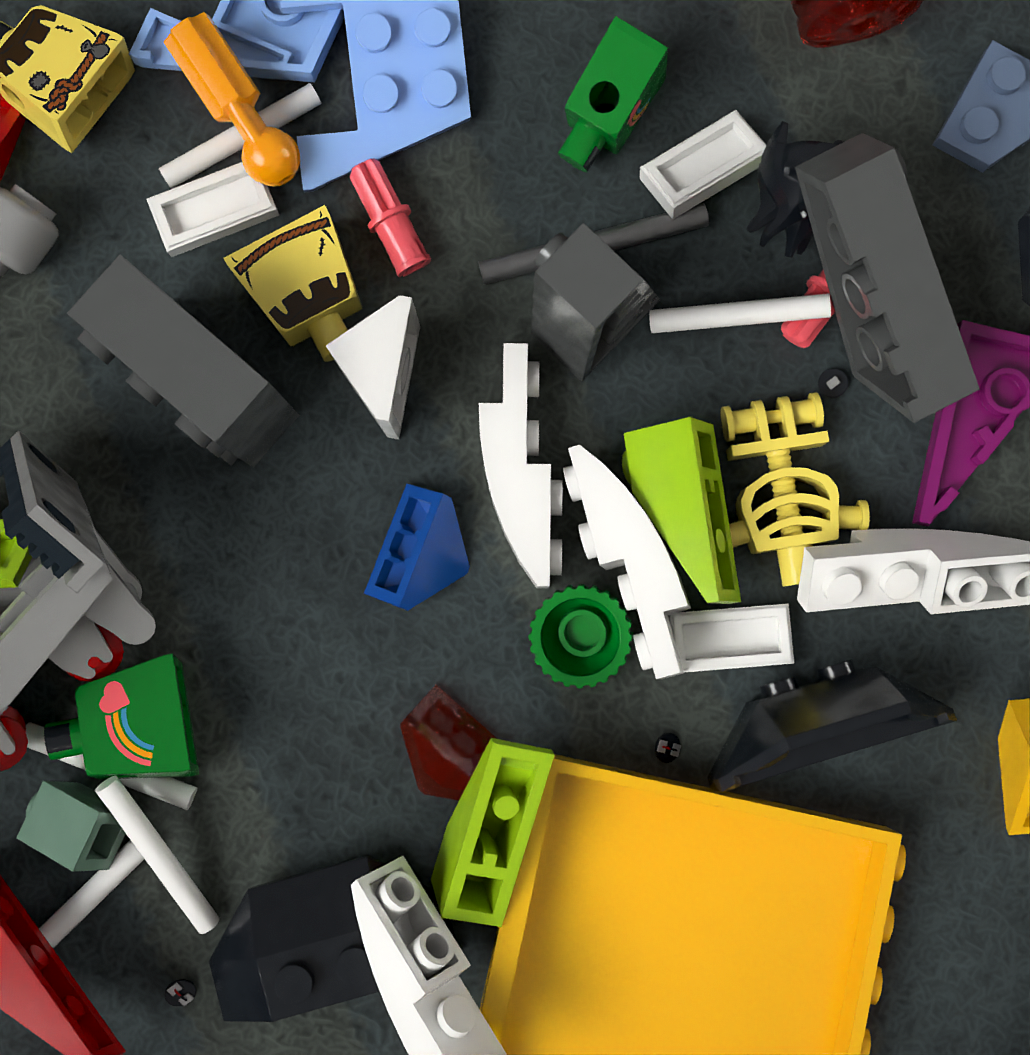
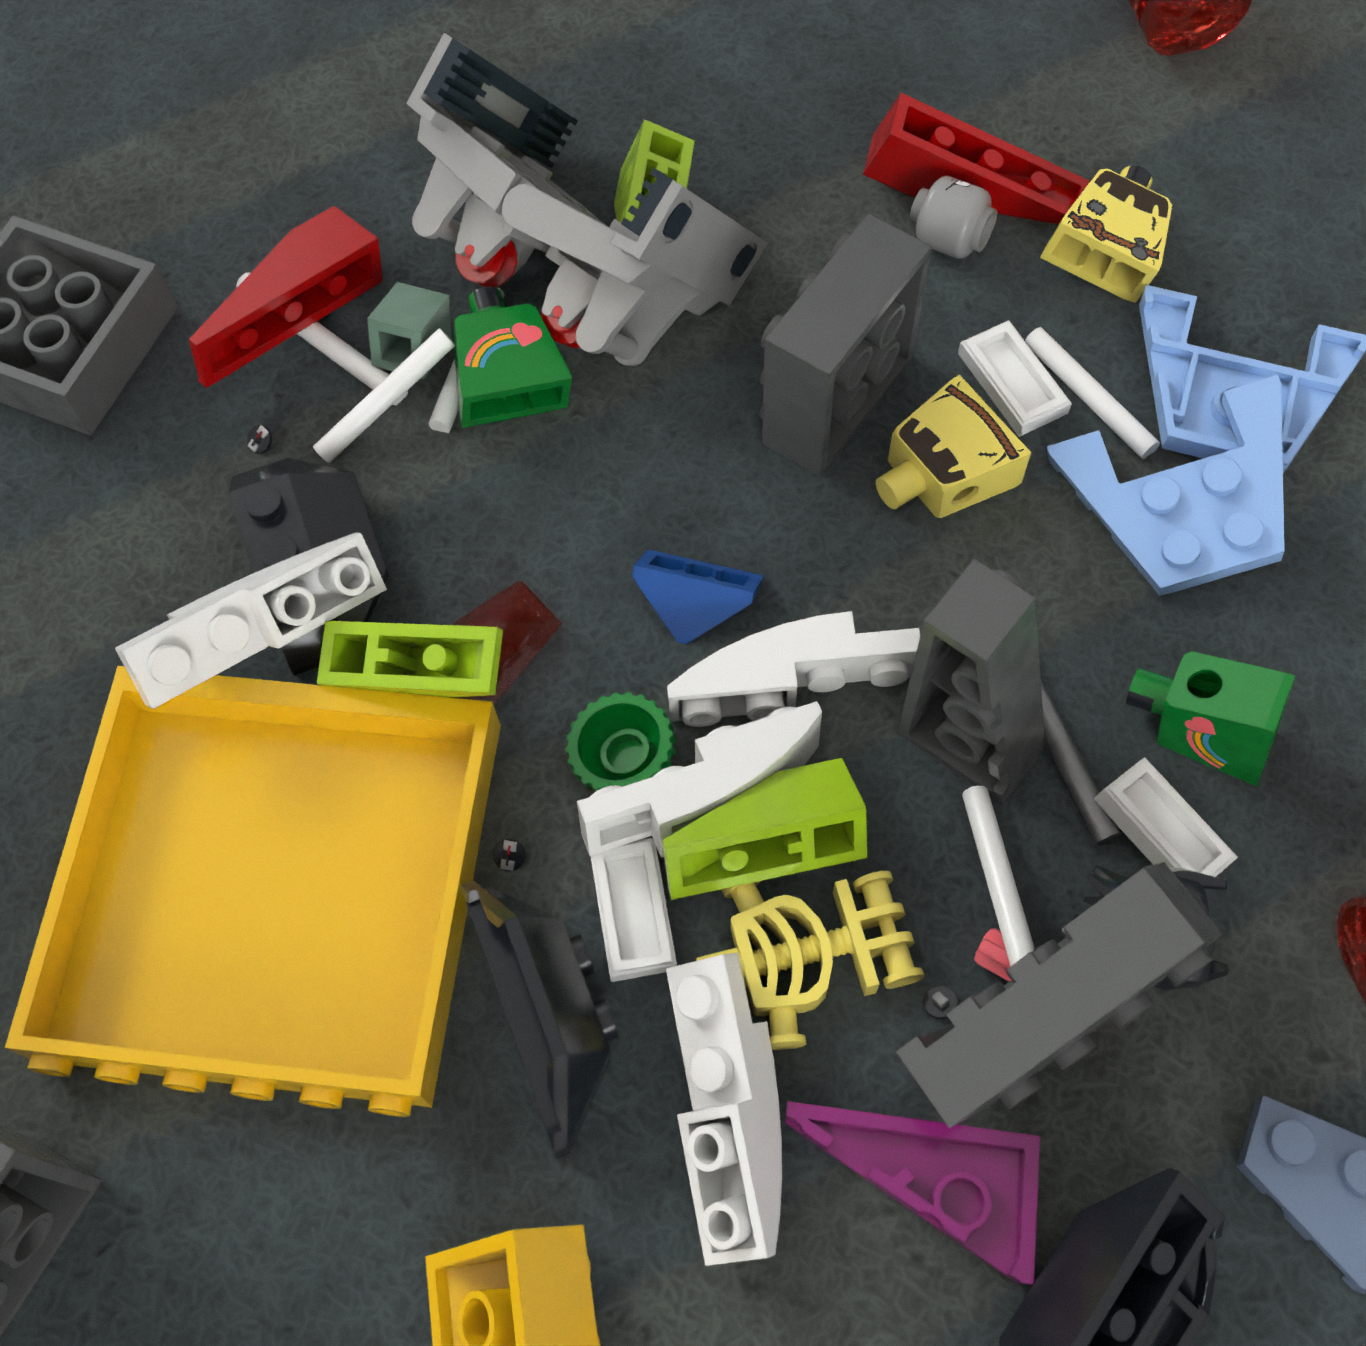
camera: 90 degrees right, 20 degrees down
(230, 96) = (1122, 364): light orange piece -> none
(379, 360) = (876, 518): white slope -> none
(389, 218) = (1033, 525): coral axle -> none

